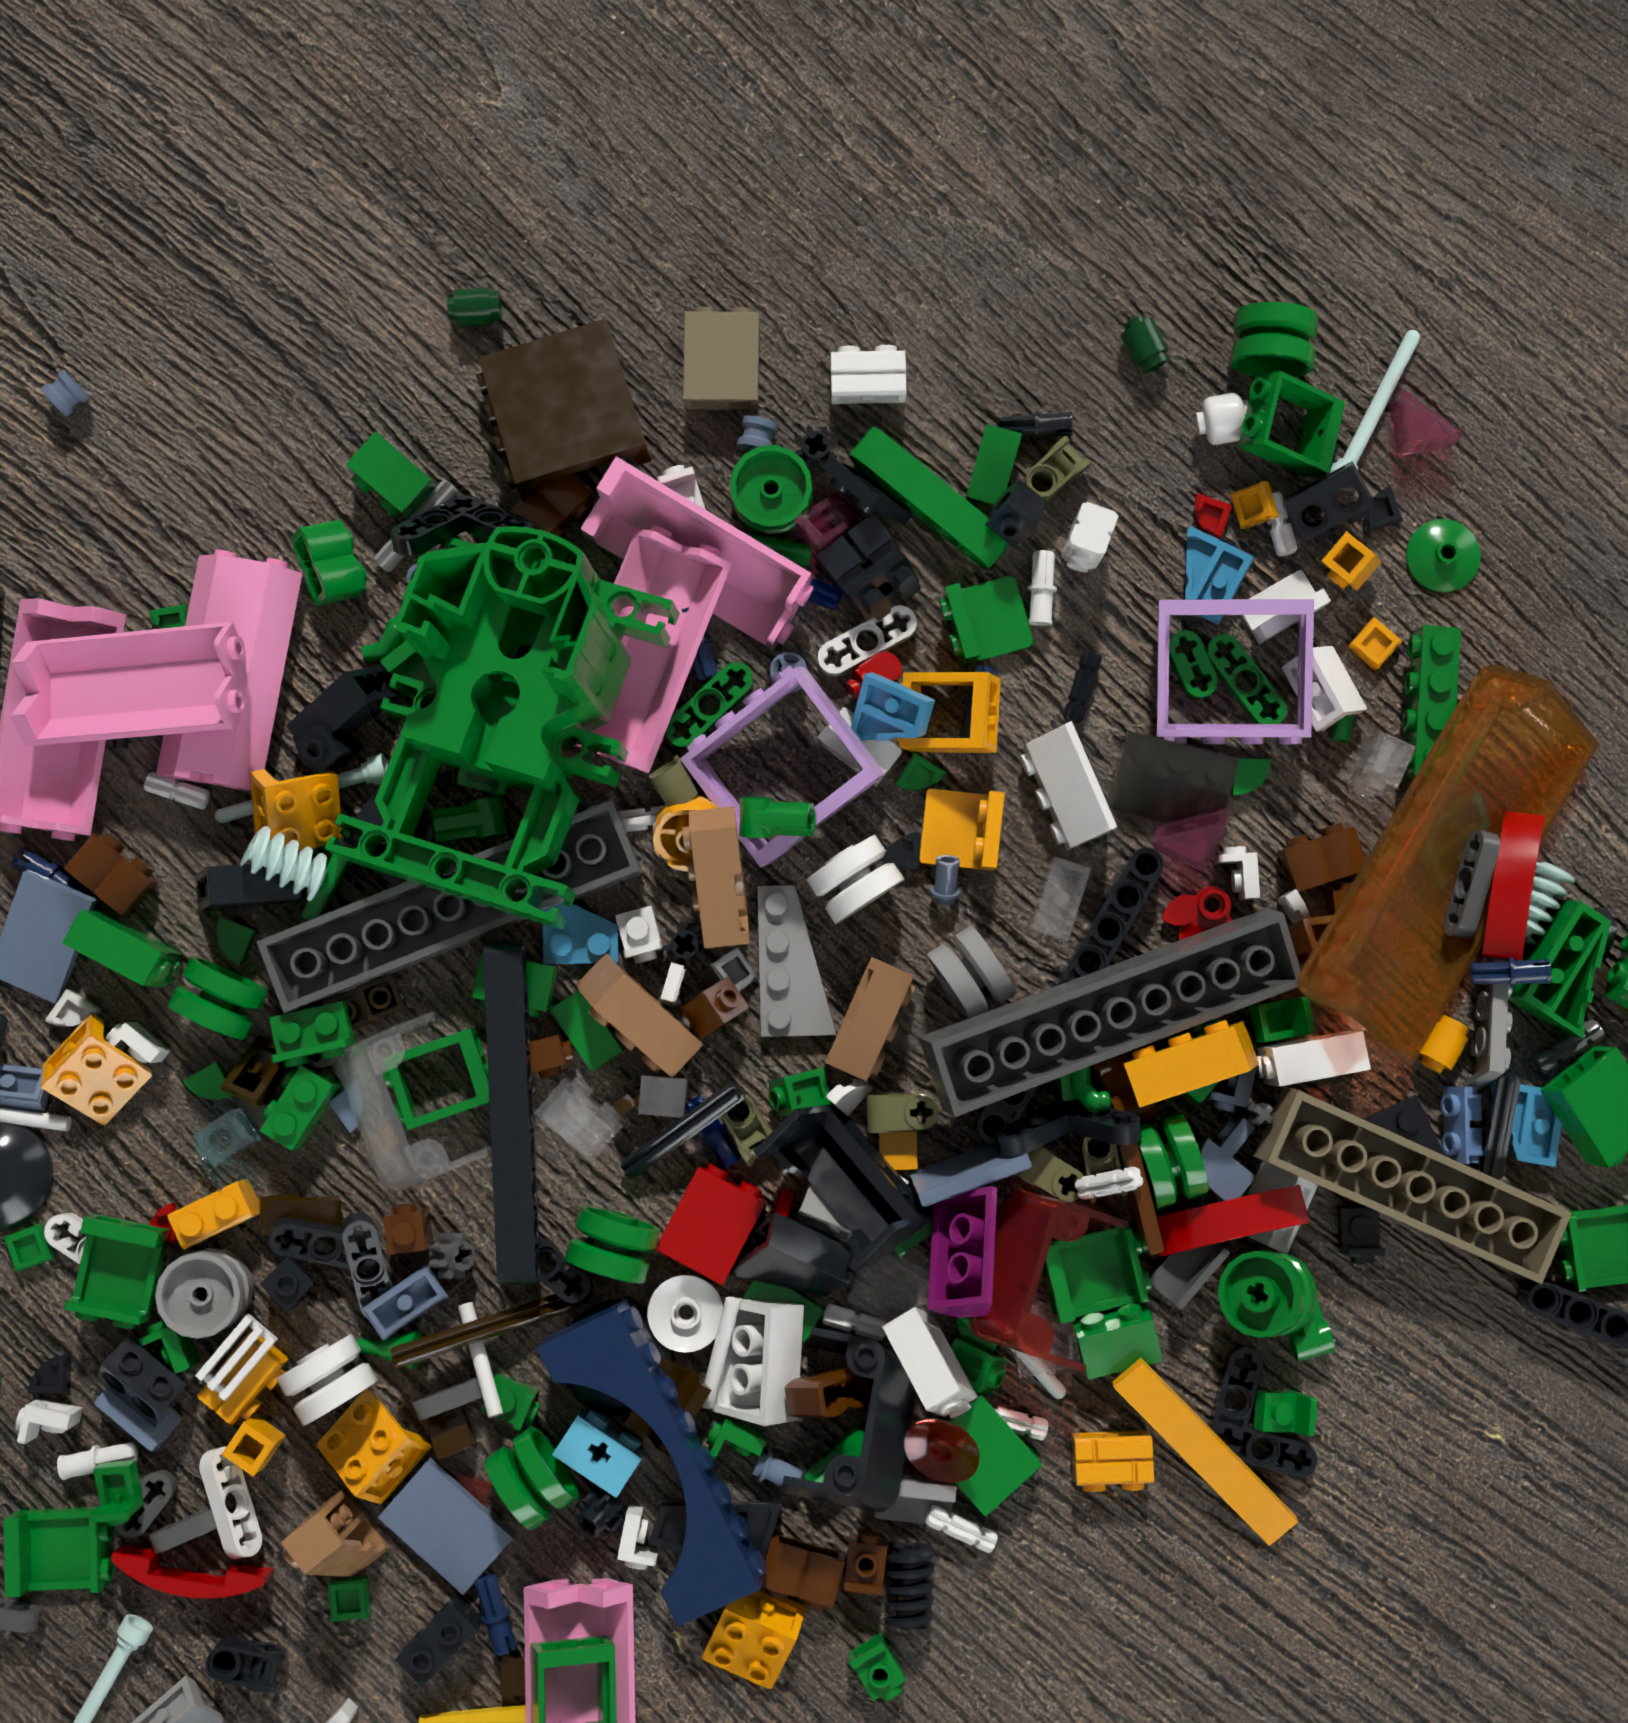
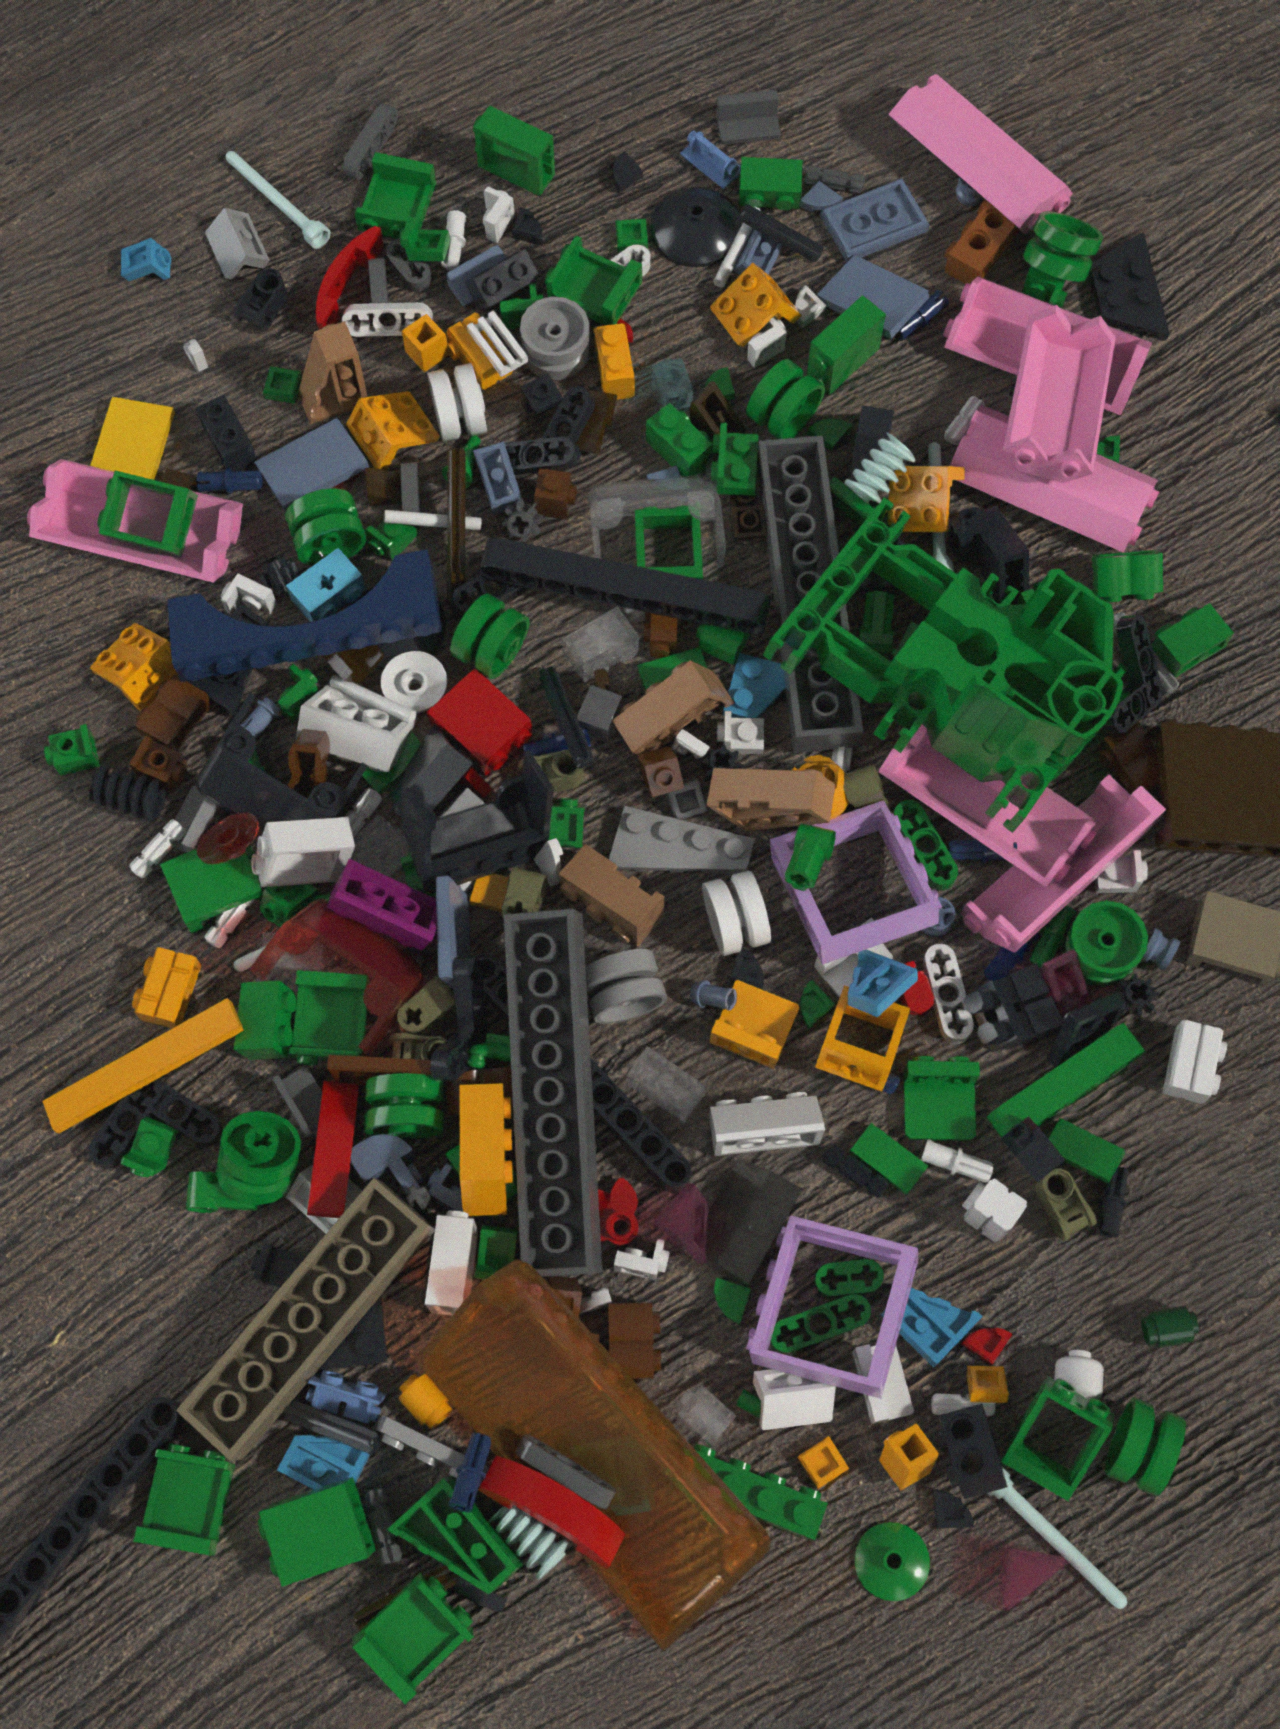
camera: 105 degrees right, 15 degrees down
(112, 874) = (908, 356): reddish brown brick -> none
(1059, 657) = (888, 1159): none -> green tile
(1109, 1183) = (402, 1040): white axle -> none

